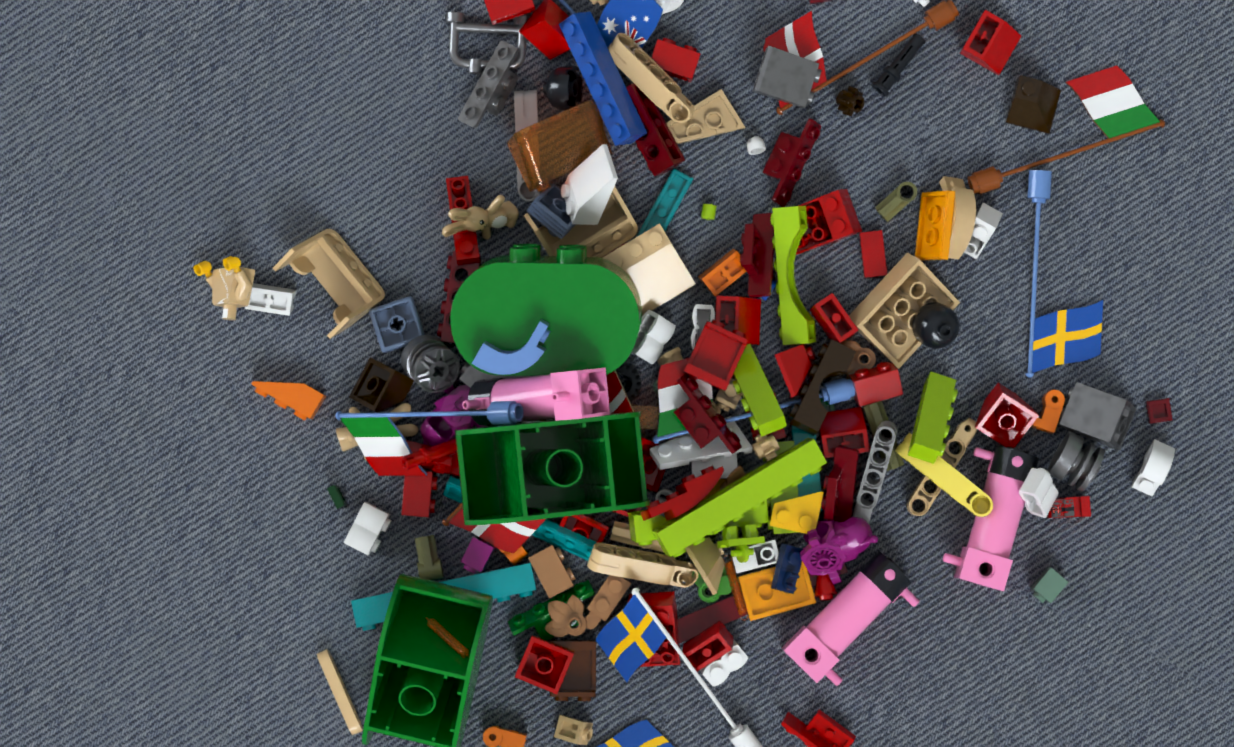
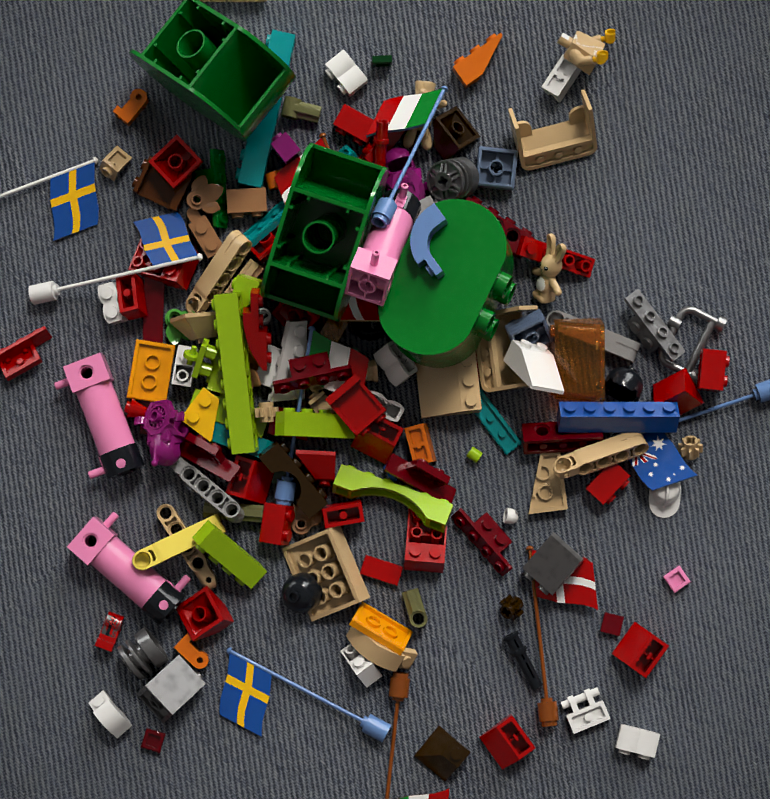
camera: 105 degrees right, 0 degrees up
(454, 641) = (229, 90): orange piece -> none
(734, 586) = (177, 341): orange piece -> none
(787, 569) = (163, 385): dark blue plate -> none
(1038, 492) = (132, 611): white brick -> none
(1048, 585) = (55, 587): sand green brick -> none

